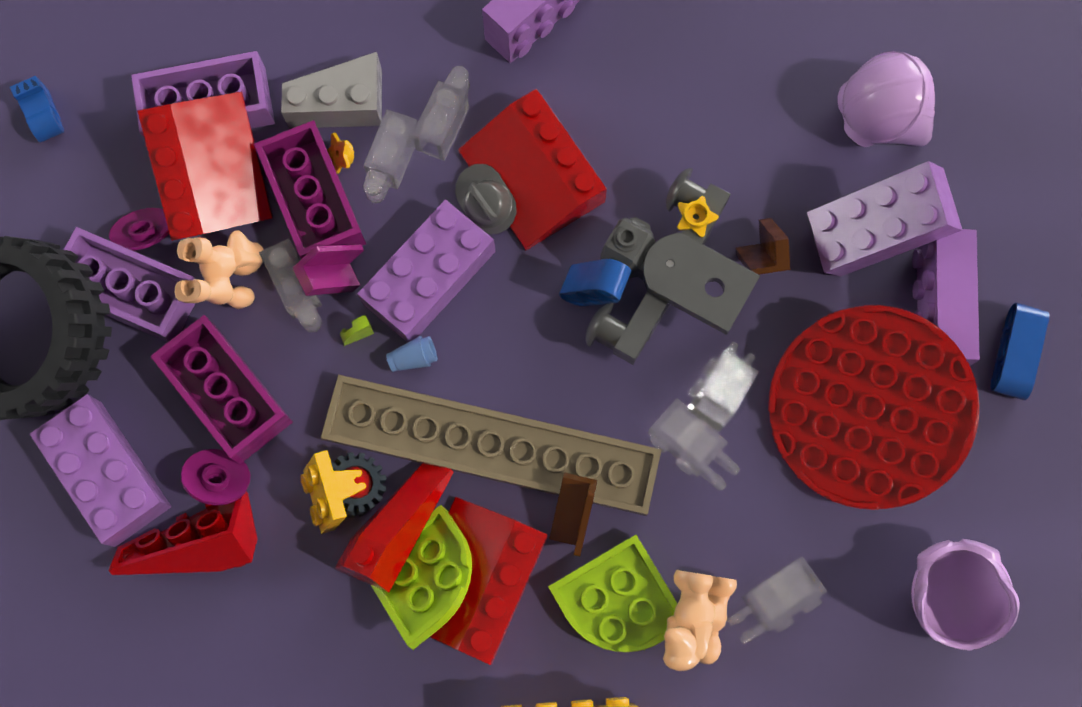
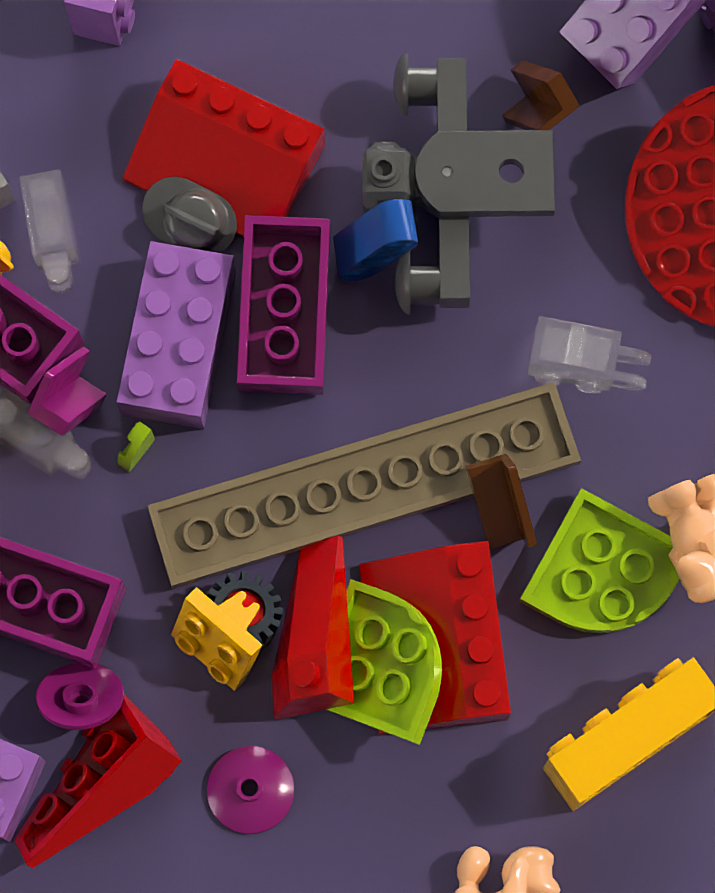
camera: 30 degrees left, 0 degrees up
(307, 611) = (255, 812): none -> magenta dish
(412, 355) = (216, 437): medium blue cone -> none
(443, 115) = (84, 147): clear hinge -> none
(508, 291) = (283, 305): none -> magenta brick
(702, 210) = (443, 93): yellow plate -> none
(723, 387) = (581, 276): clear hinge -> none

